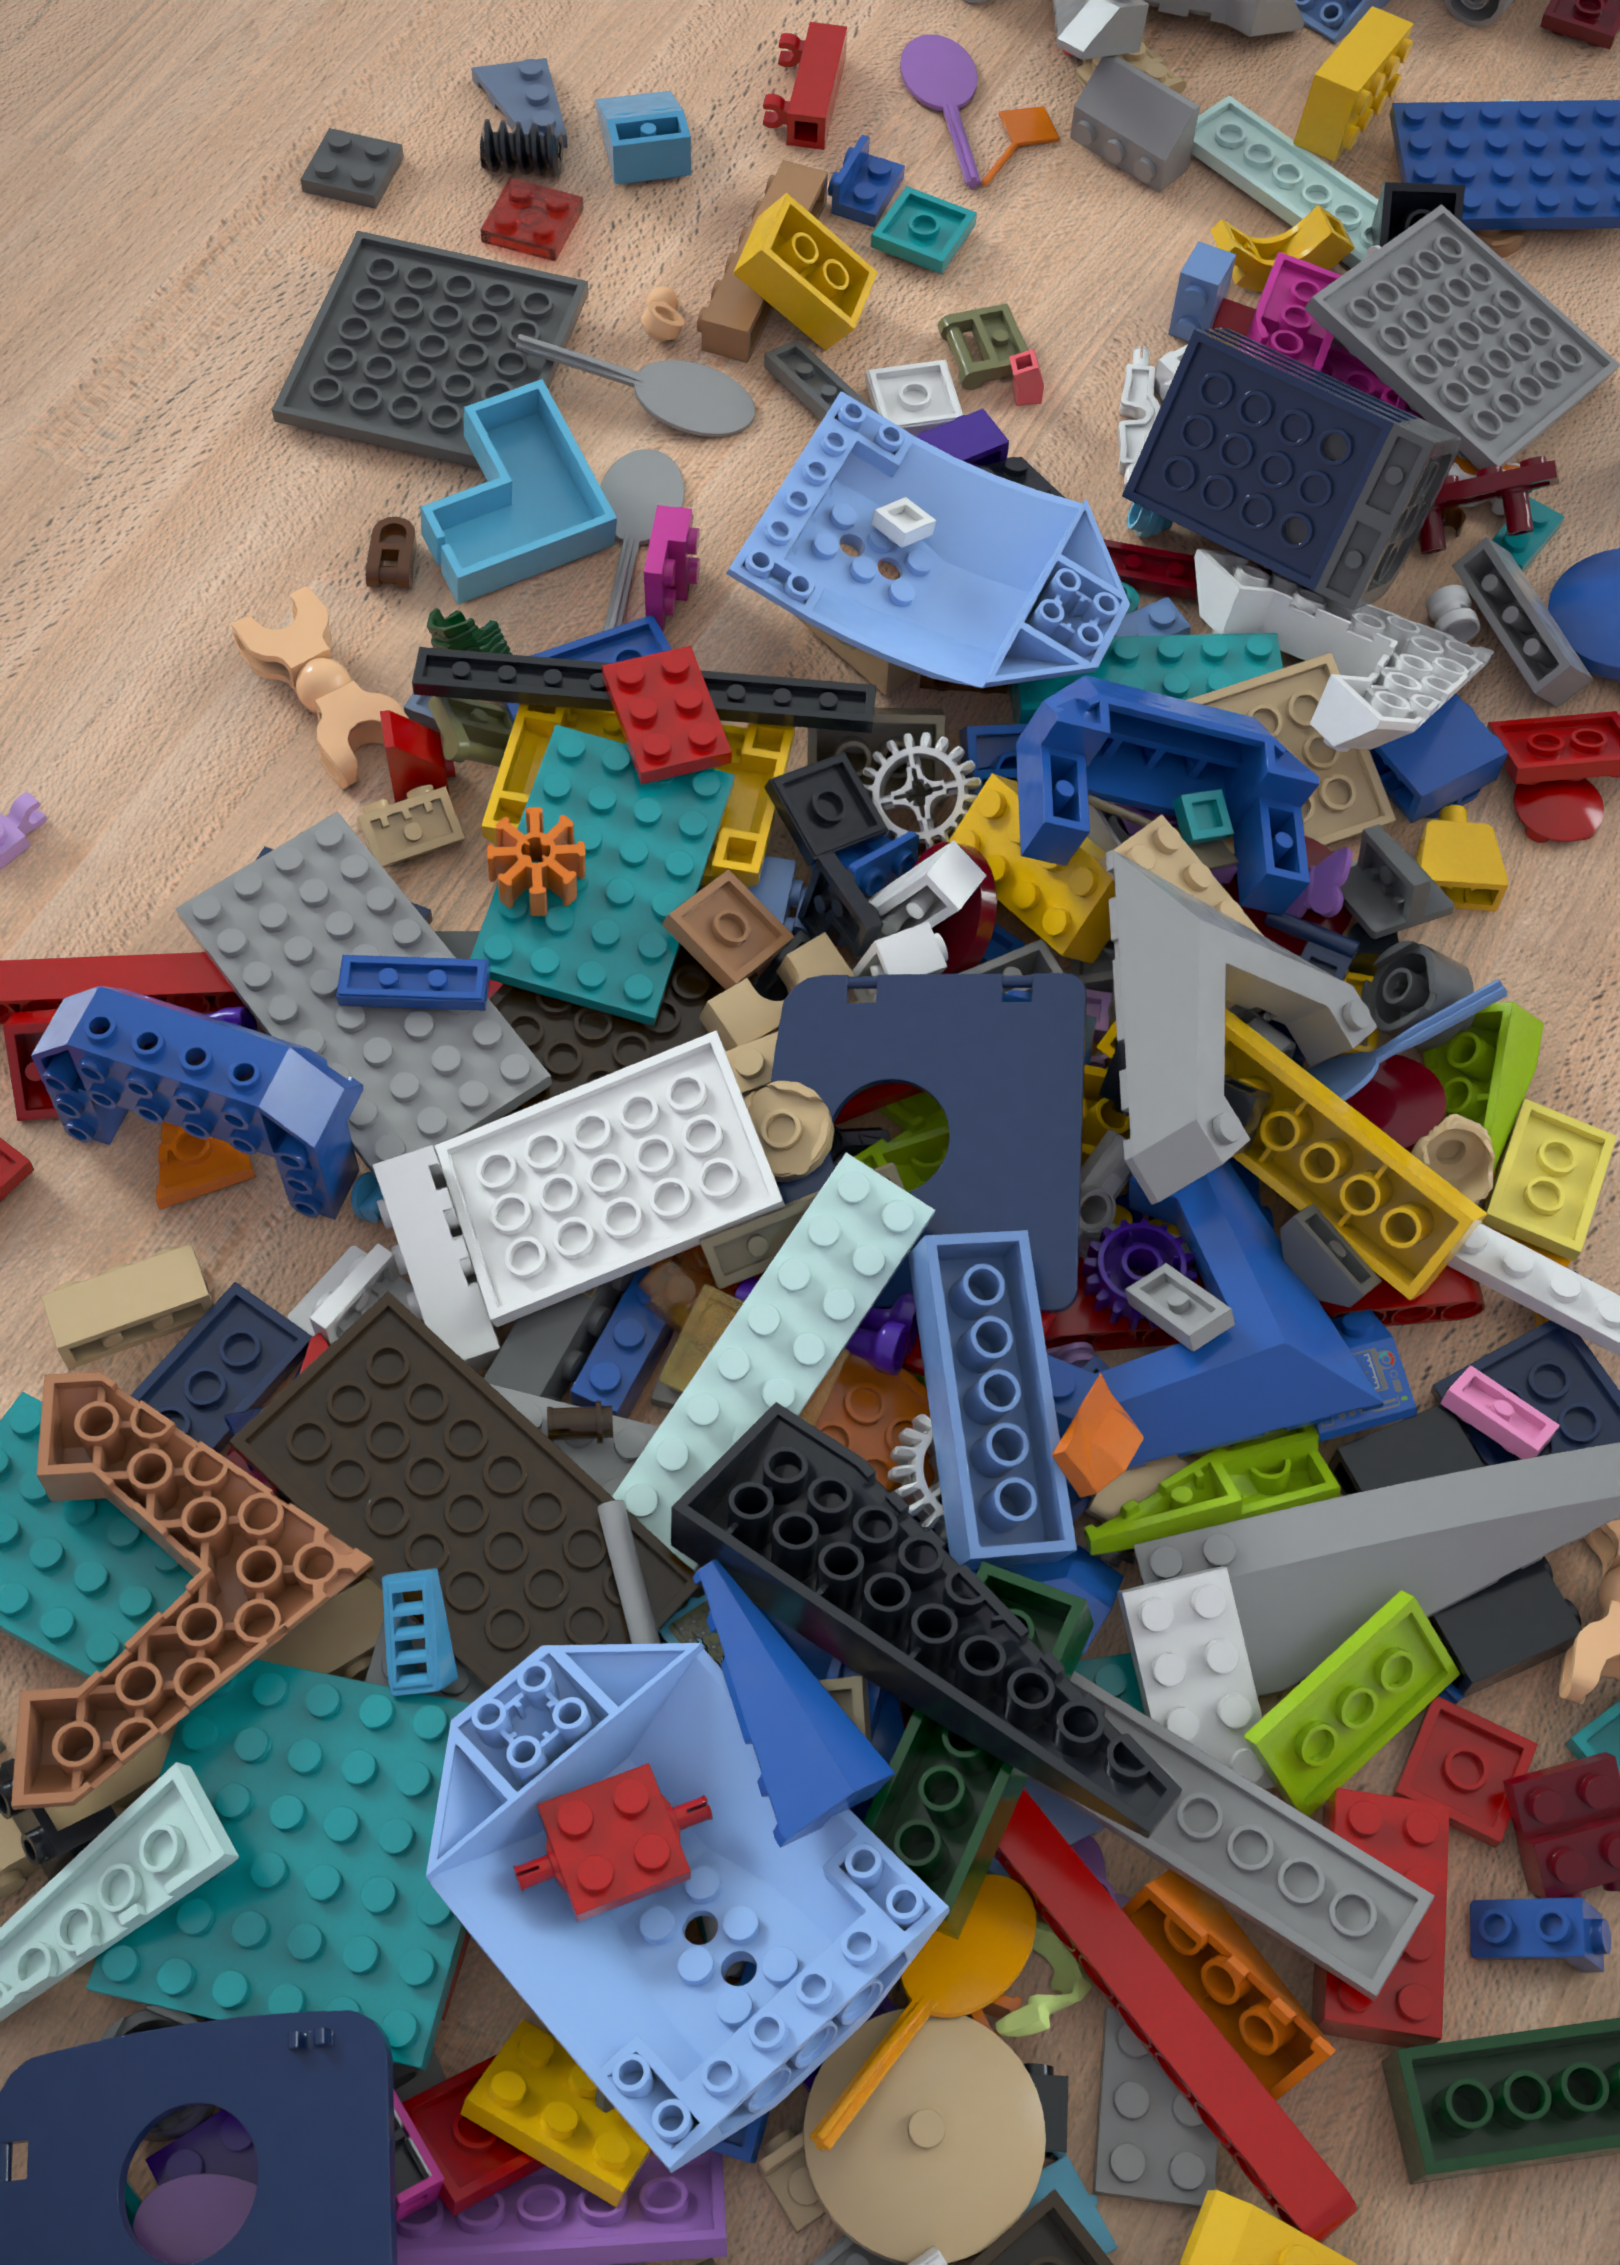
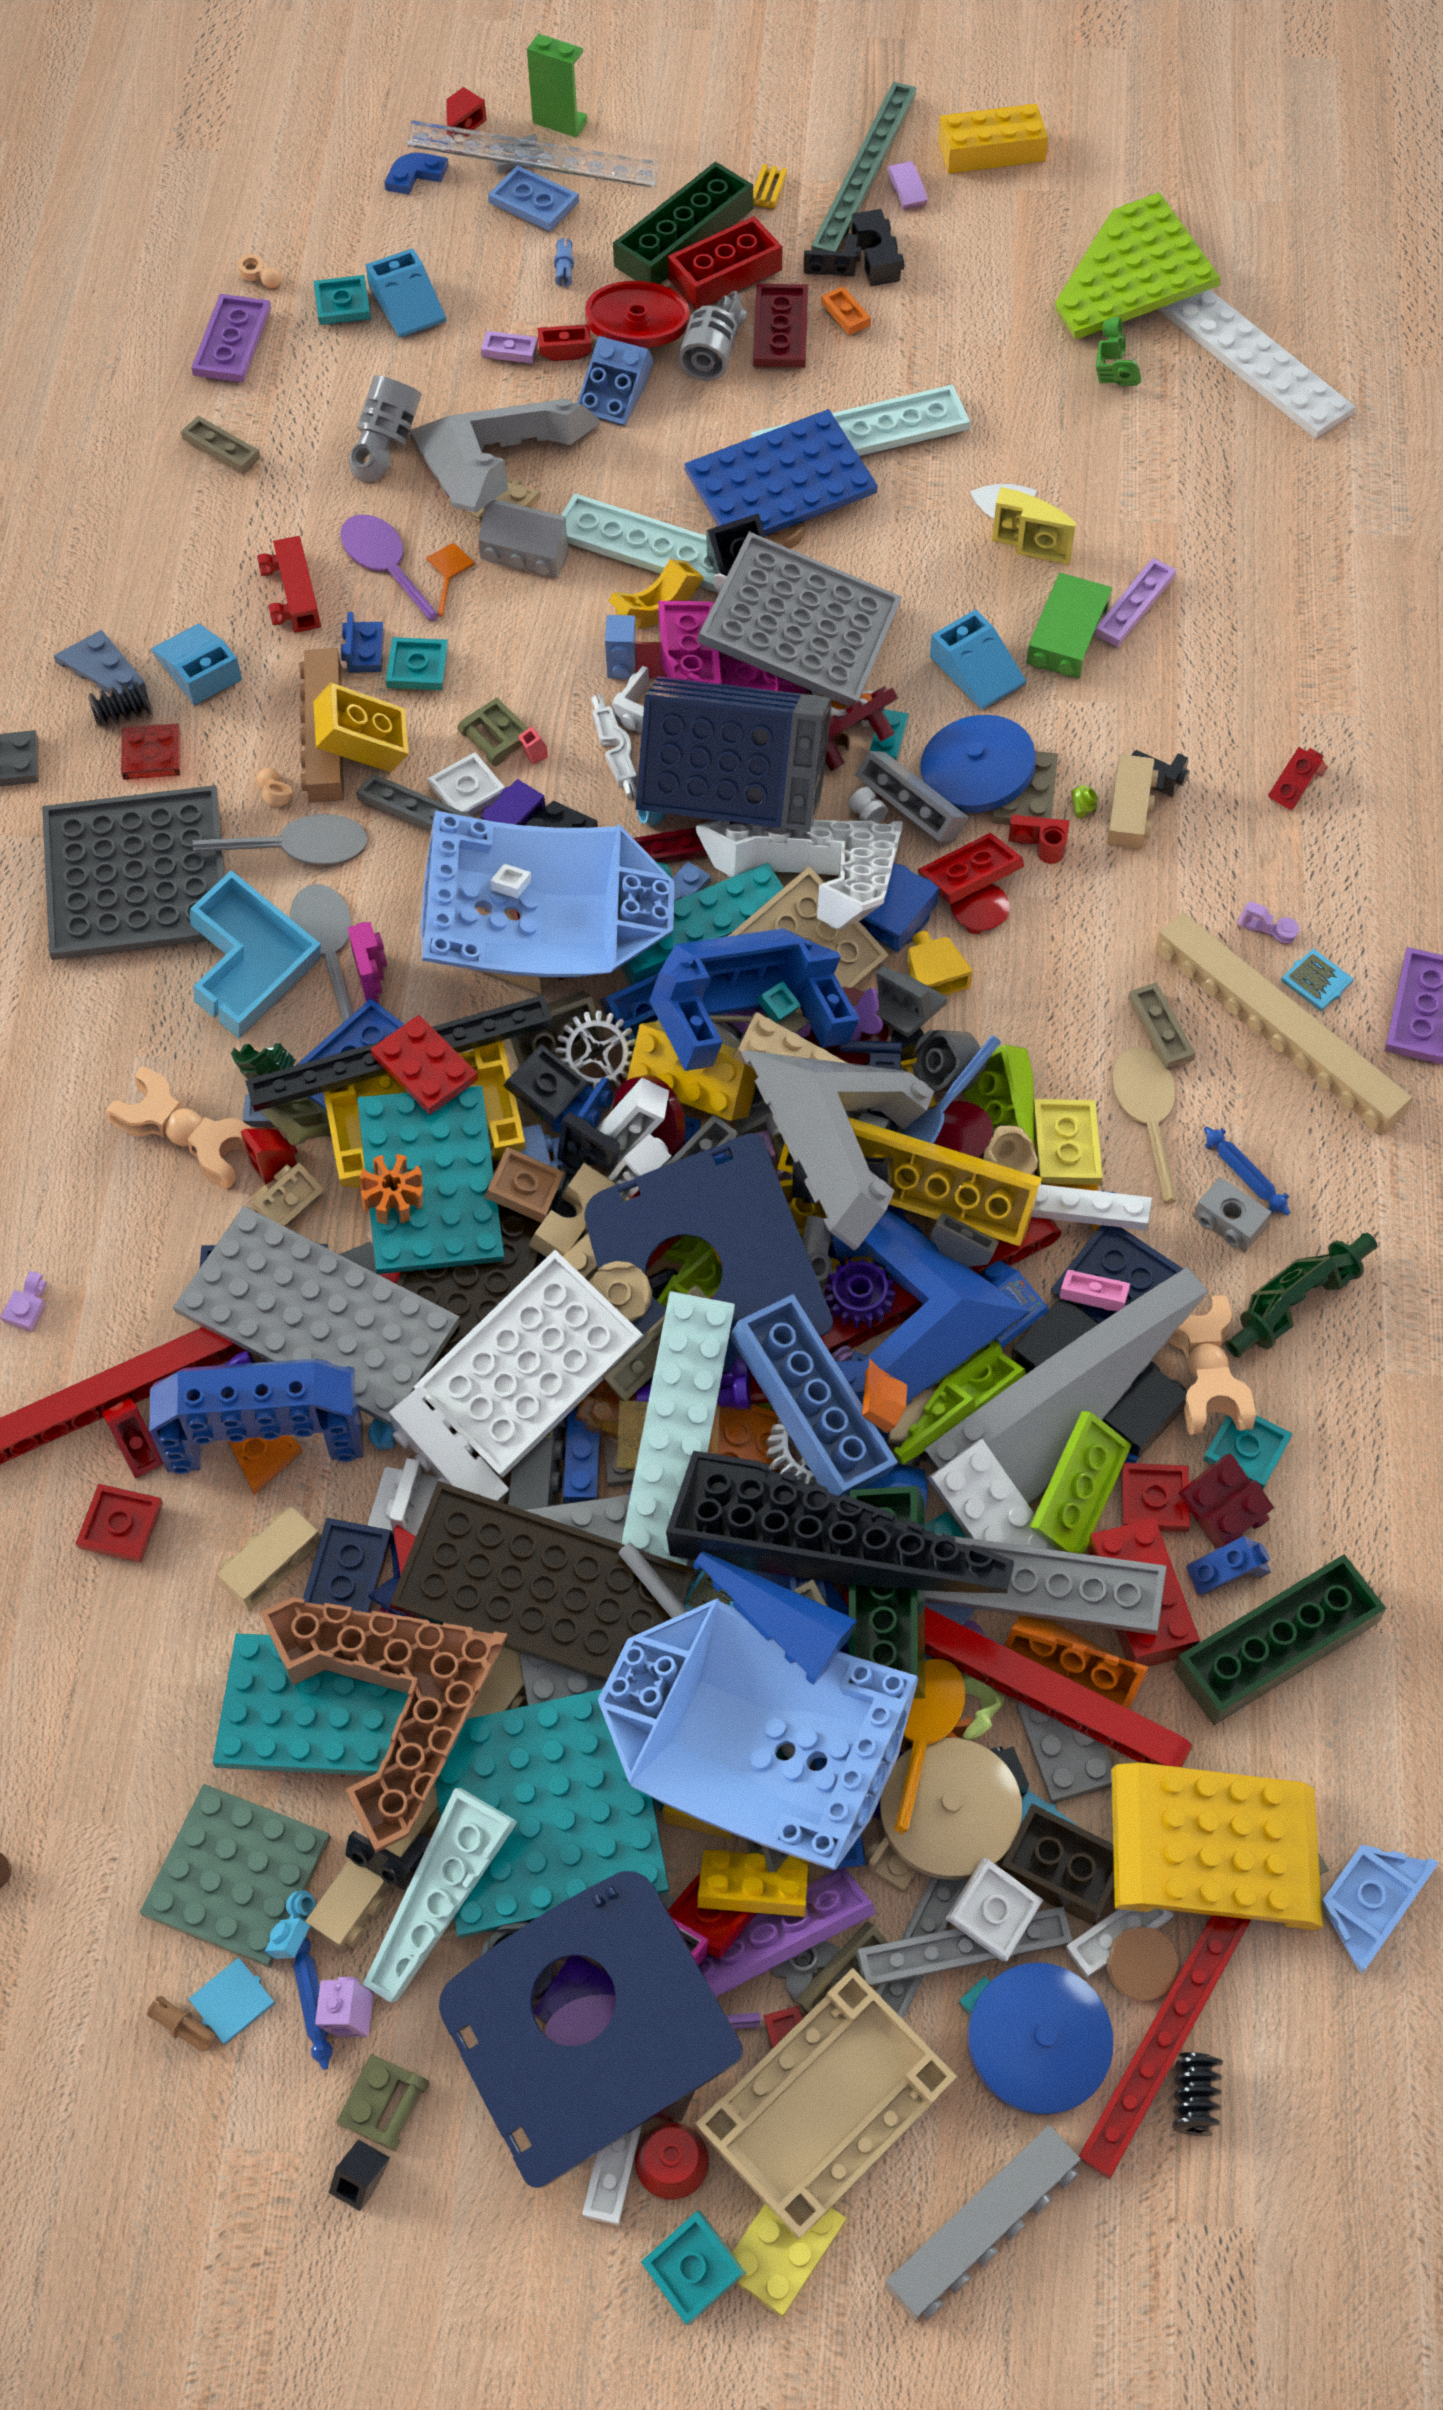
camera: 20 degrees left, 0 degrees up
(391, 541) = (178, 1012): reddish brown plate -> none
(413, 982) = (349, 1293): blue tile -> none
(438, 1648) = (540, 1669): dark azure slope -> none
(580, 1423) = (583, 1510): dark brown pin -> none
(613, 1842) = (718, 1724): red plate -> none
(1180, 1307) = (894, 1302): light grey plate -> none
(1354, 84) = (655, 460): yellow brick -> none

